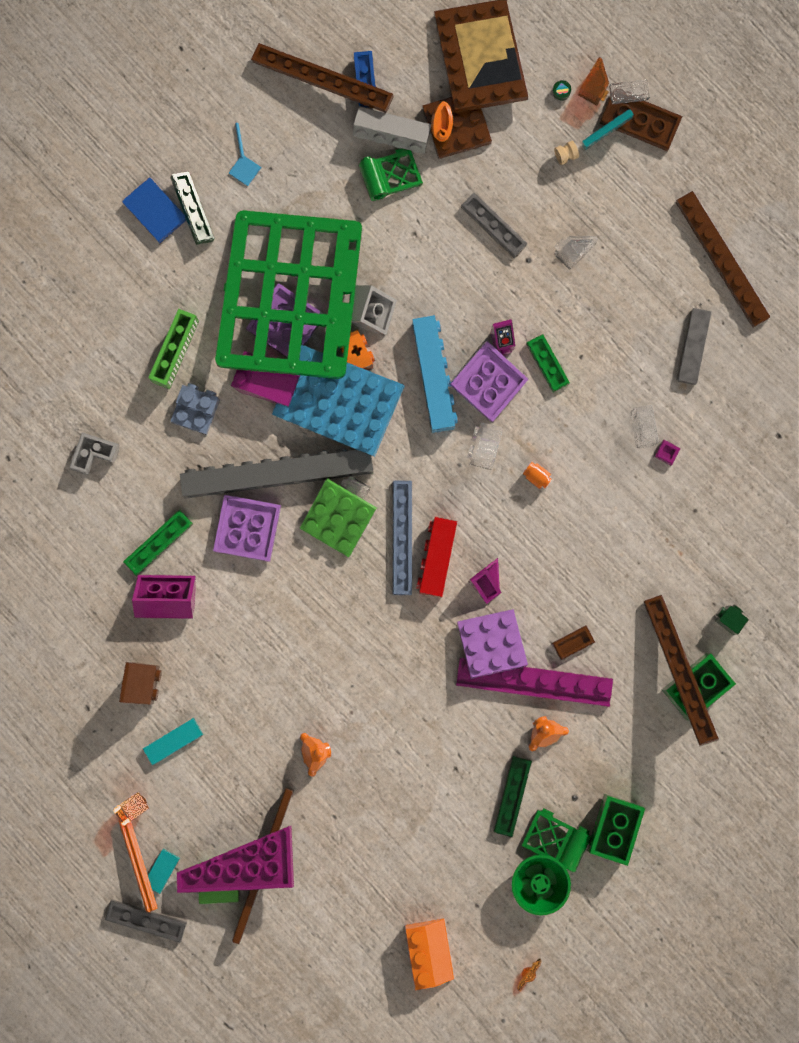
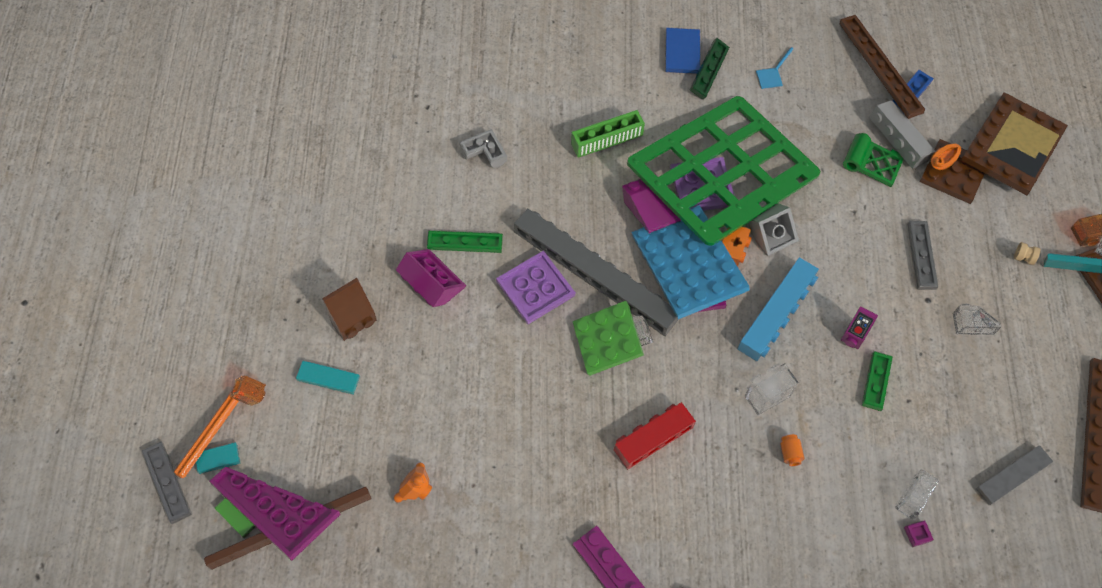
camera: 45 degrees right, 20 degrees down
(195, 408) = (582, 183): sand blue plate -> none
(402, 537) = (640, 399): sand blue tile -> none
(487, 582) = (675, 489): magenta slope -> none
(488, 381) = (817, 349): medium lavender plate -> none
(492, 644) = (632, 539): medium lavender plate -> none
(561, 90) = (1060, 213): dark green tile -> none

